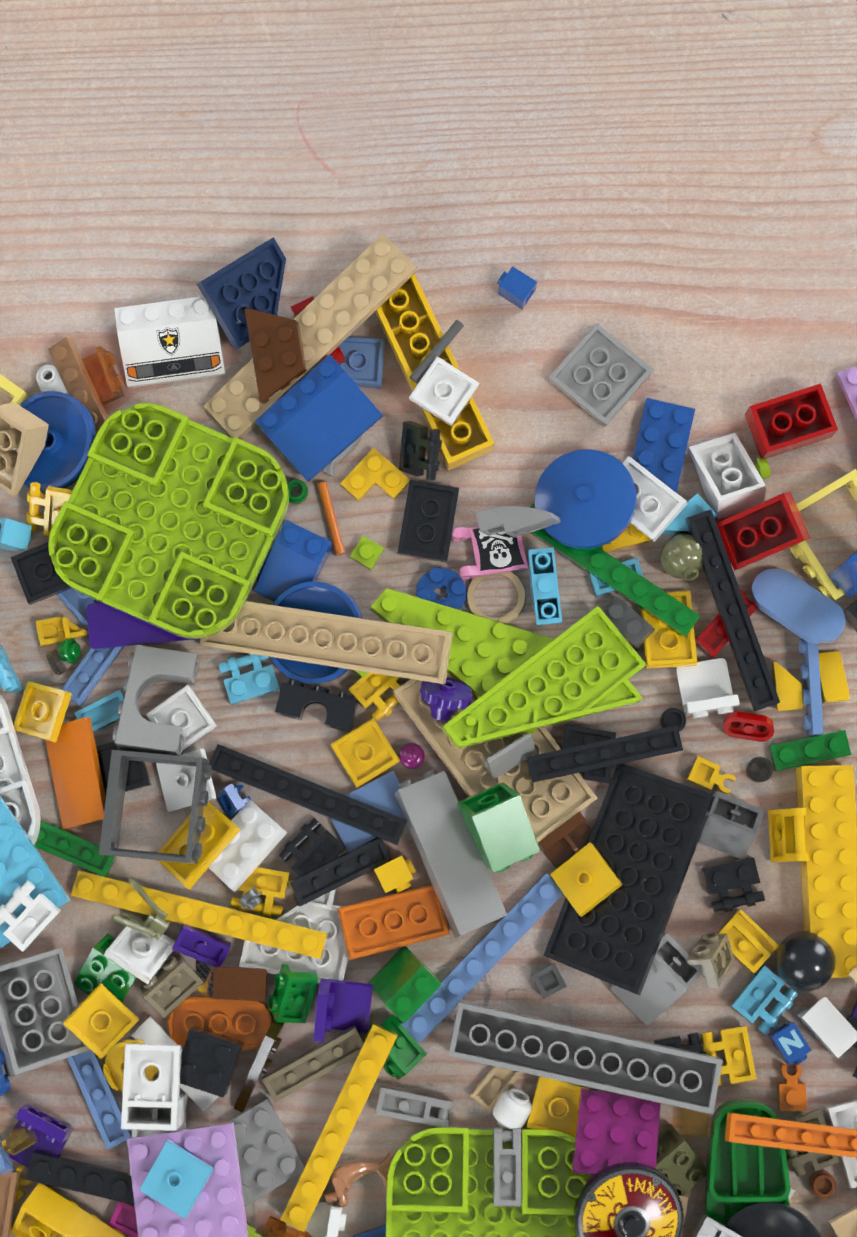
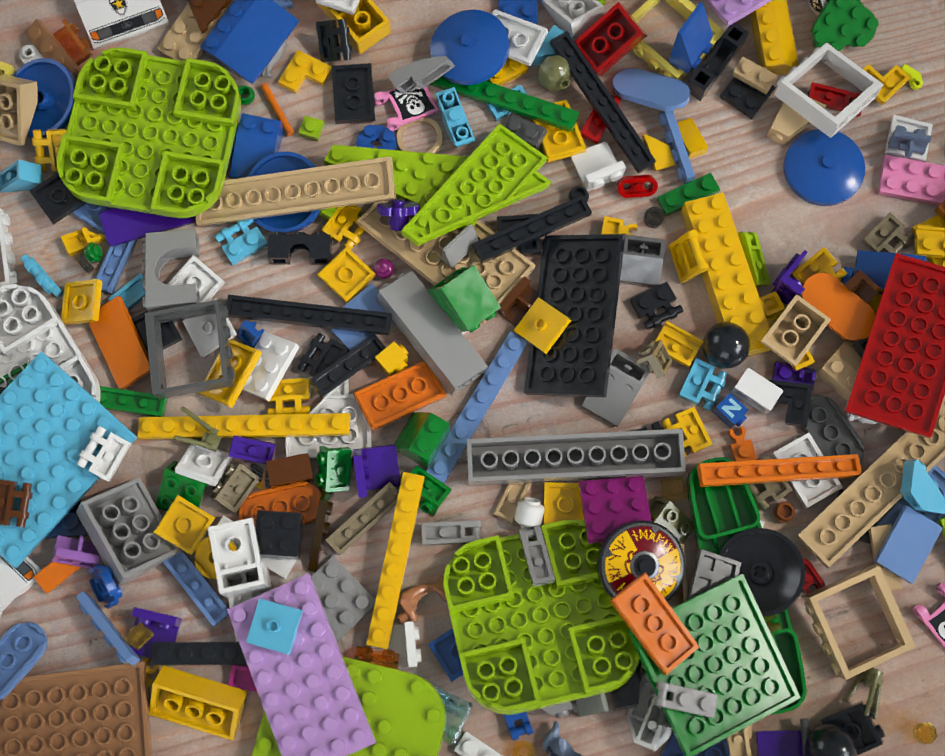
camera: 20 degrees left, 5 degrees down
(250, 899) = (282, 403): dark grey plate -> none
(549, 980) = (533, 410): dark grey plate -> none

